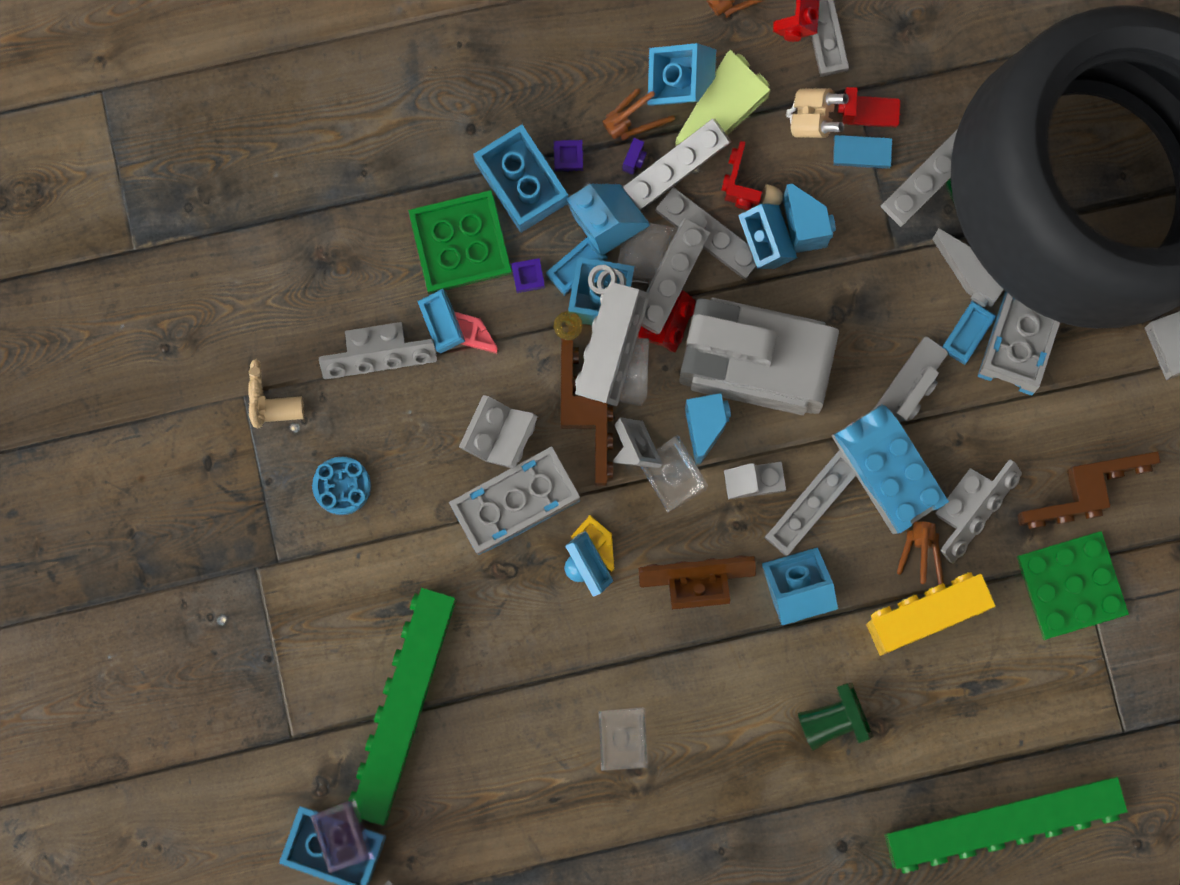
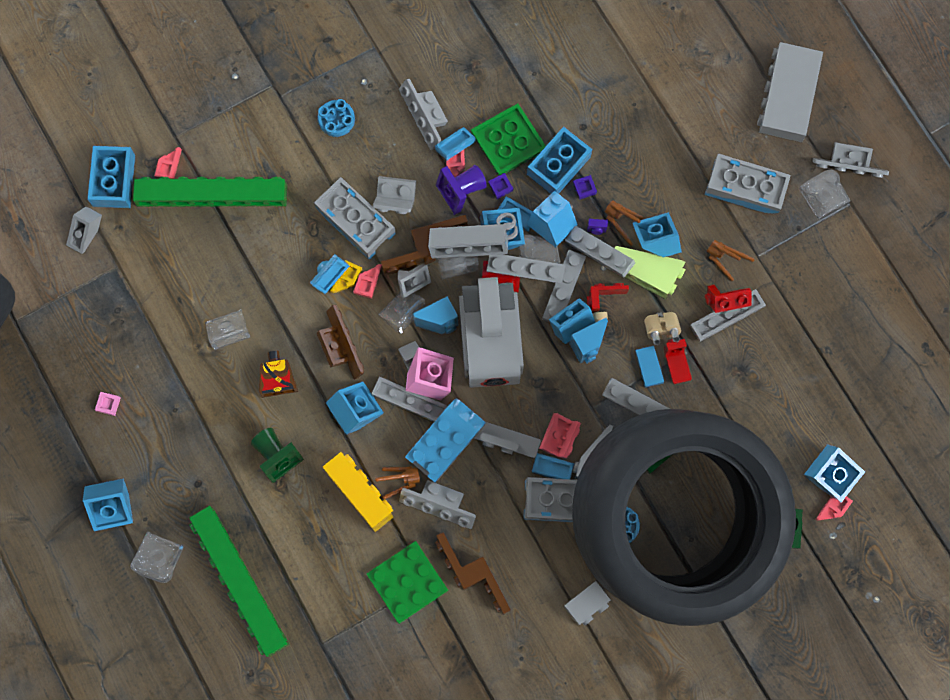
camera: 70 degrees right, 5 degrees down
(270, 410) = (369, 59): tan piece -> none
(336, 761) = (168, 164): none -> coral tile
(342, 836) = (118, 176): clear purple slope -> none
(516, 340) = (456, 188): none -> dark purple plant
(573, 322) = (473, 209): clear yellow cone -> none
(613, 513) = (367, 282): none -> coral tile
(719, 686) = (276, 377): none -> torso
(787, 461) = (430, 374): none -> bright pink slope
(929, 306) = (560, 436): none -> coral bracket

